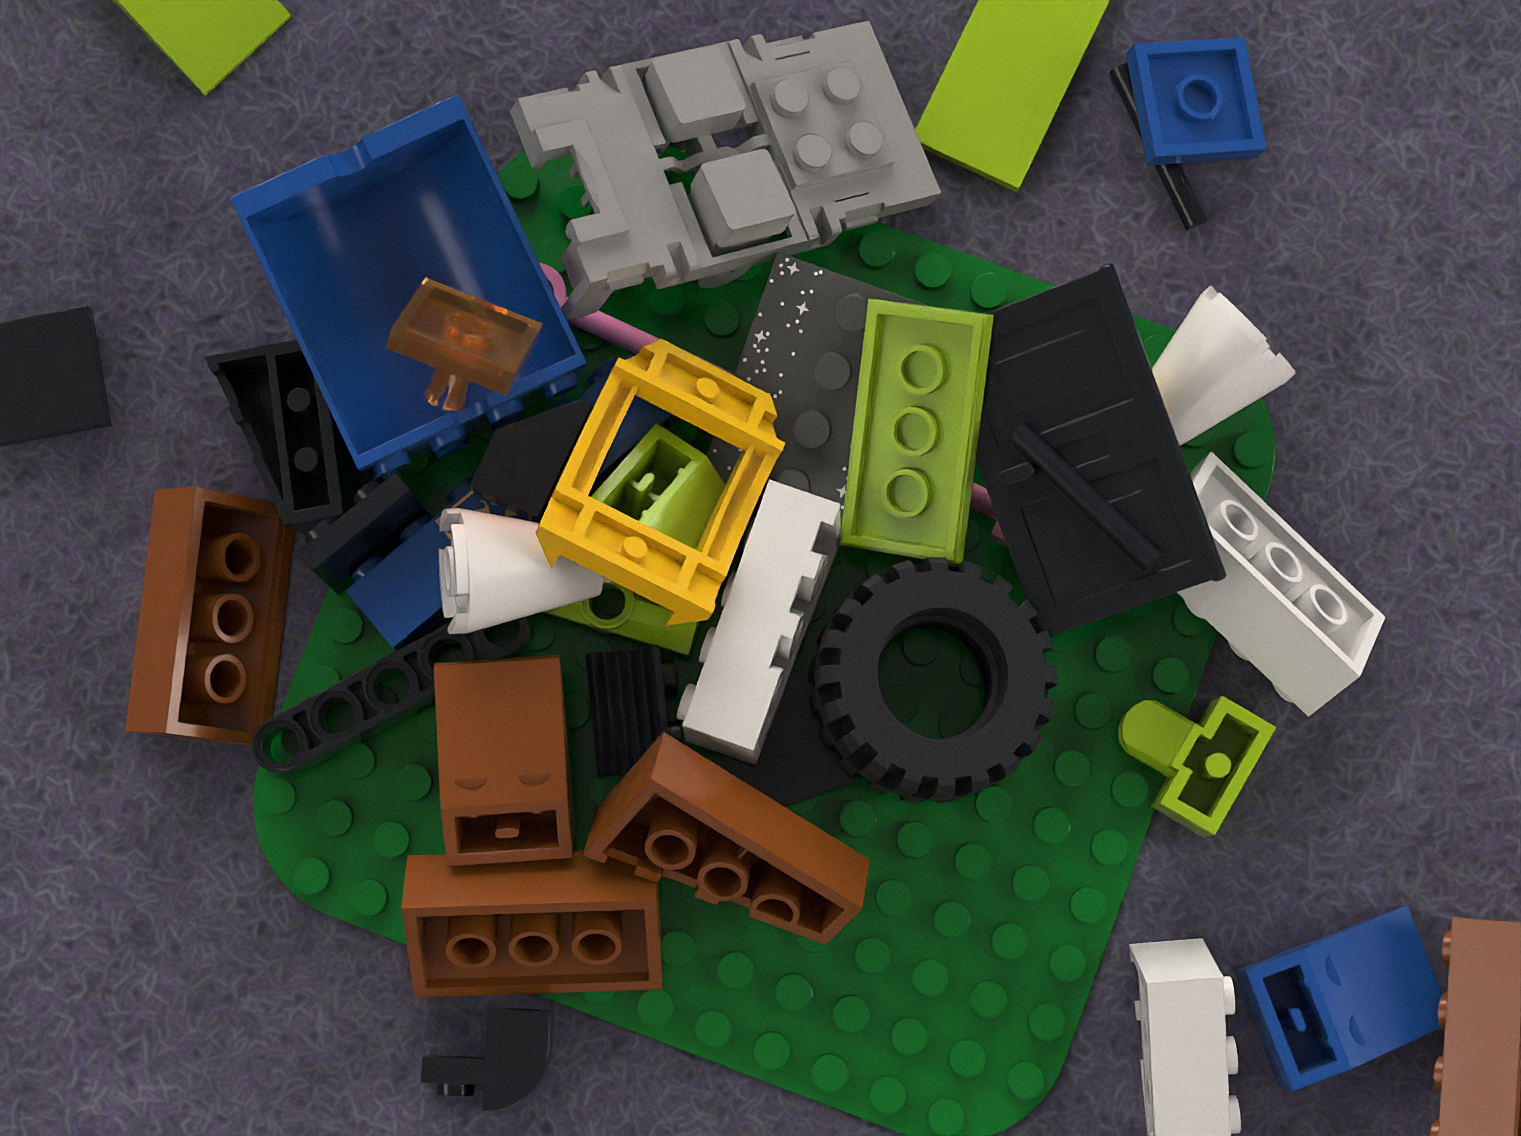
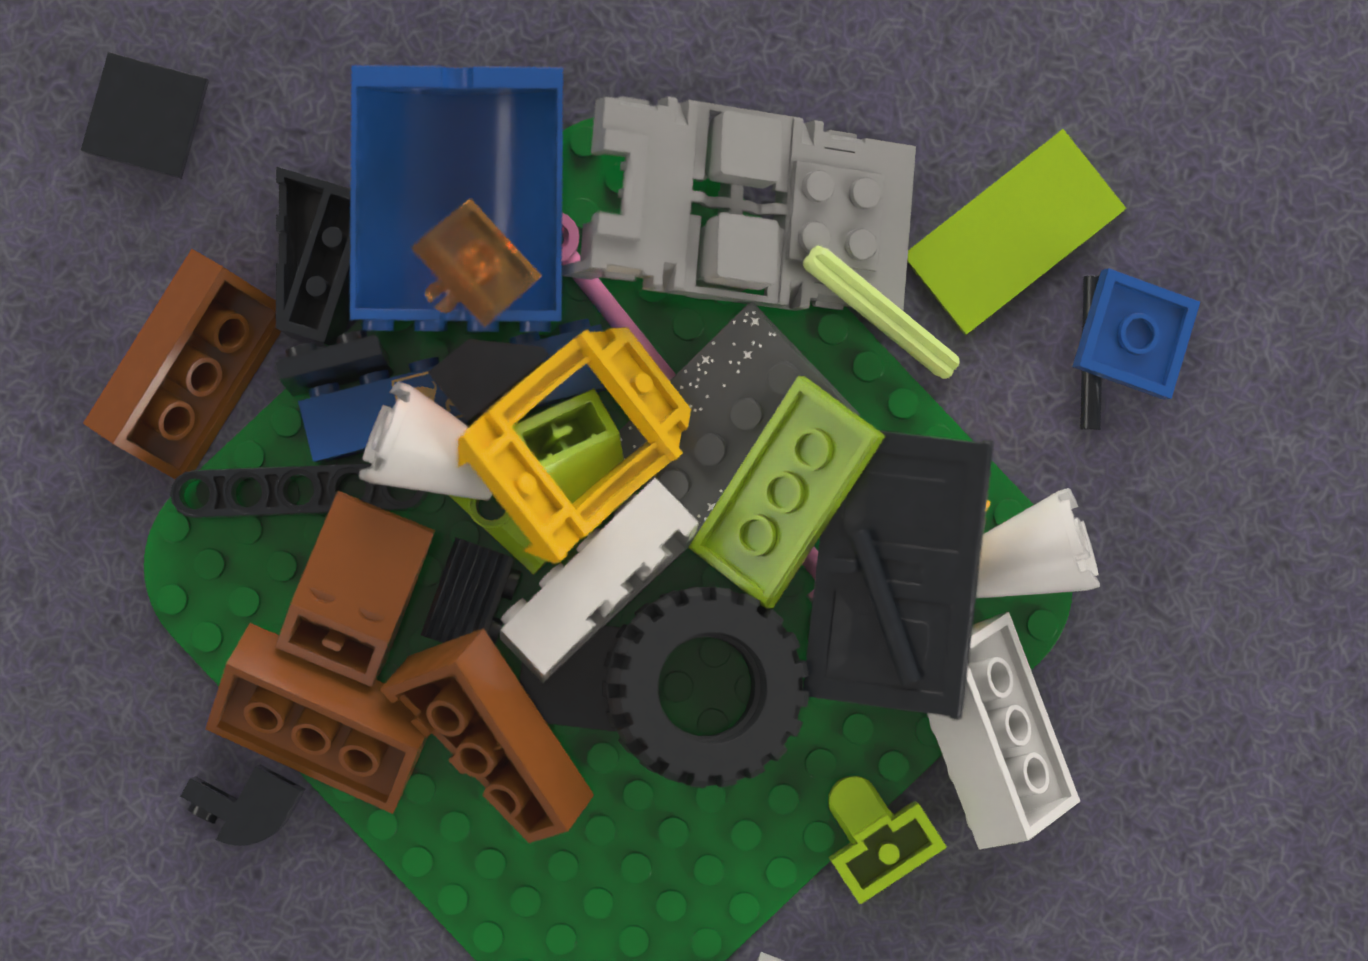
camera: 20 degrees right, 5 degrees up
(919, 200) = (881, 312): none -> yellowish green axle

